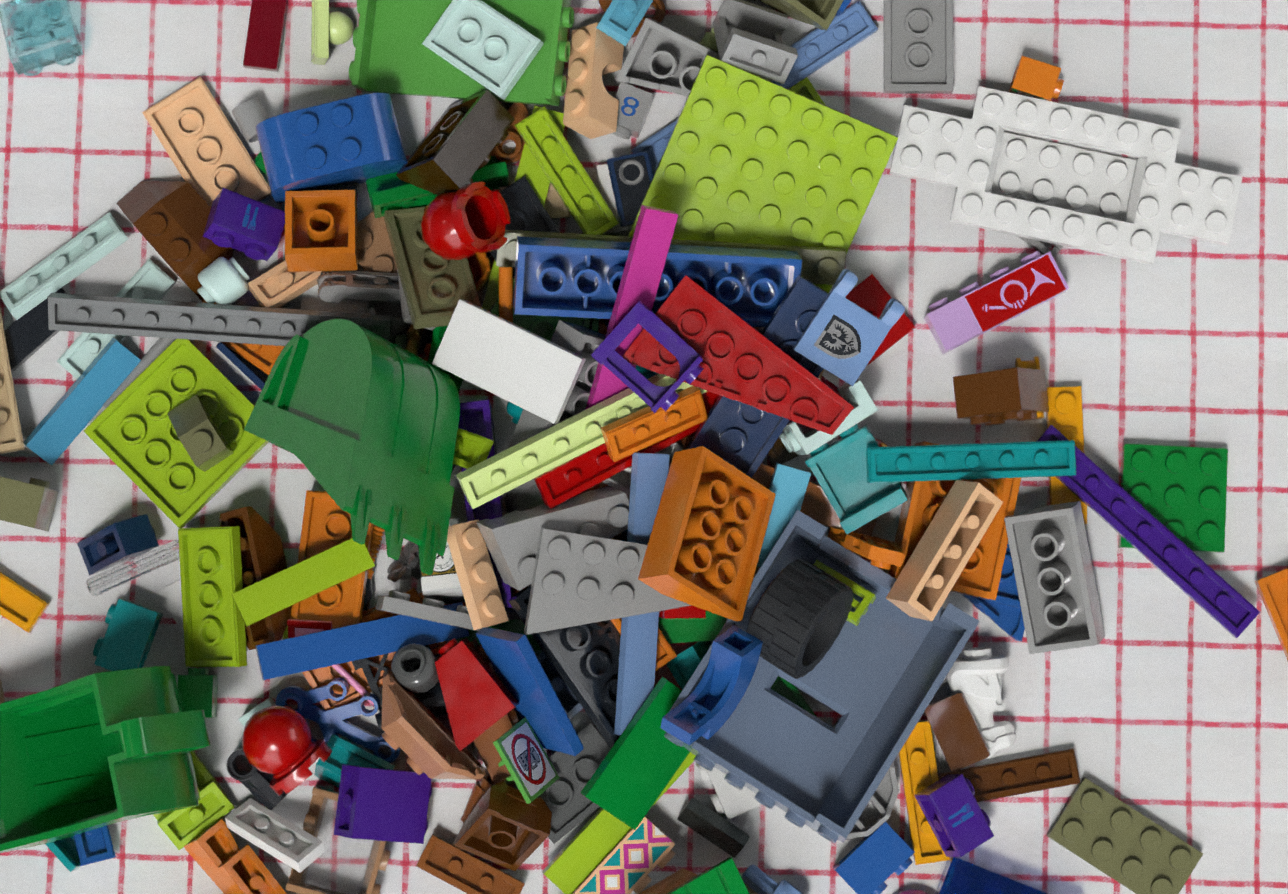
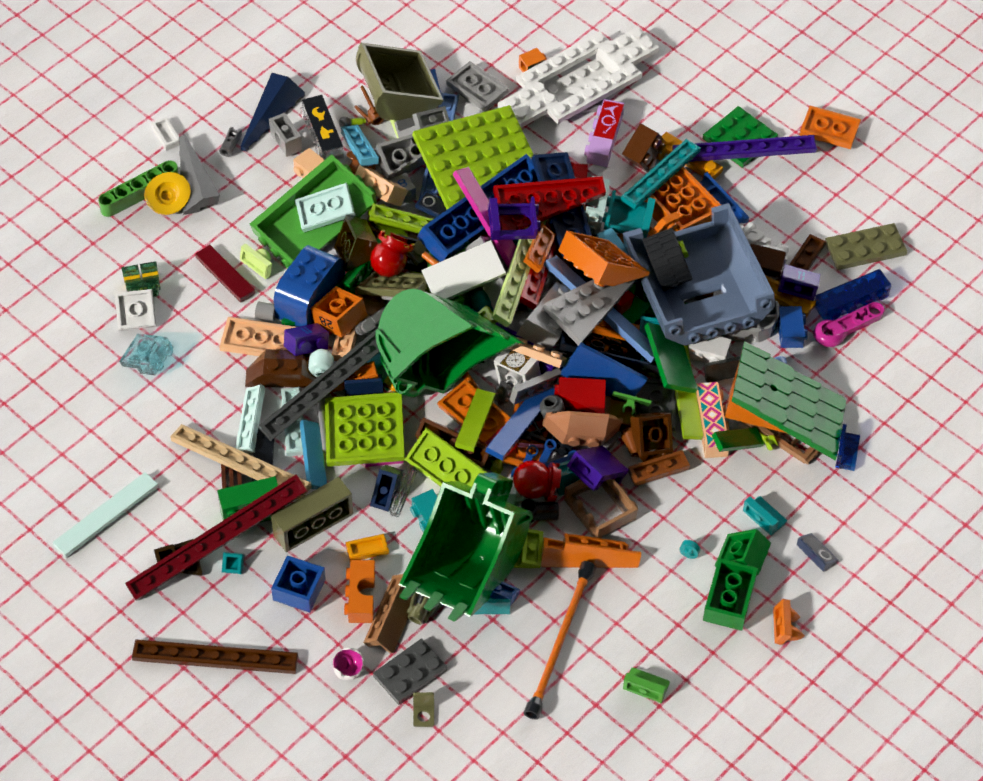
camera: 50 degrees left, 30 degrees down
(199, 434) = (375, 414): olive slope -> none
(275, 835) = (571, 515): white plate -> none
(720, 690) = (667, 295): blue arch -> none
(844, 334) = (569, 161): medium blue flag -> none
(944, 550) = (688, 198): light nougat brick -> none
(1055, 578) = (735, 183): light grey slope -> none

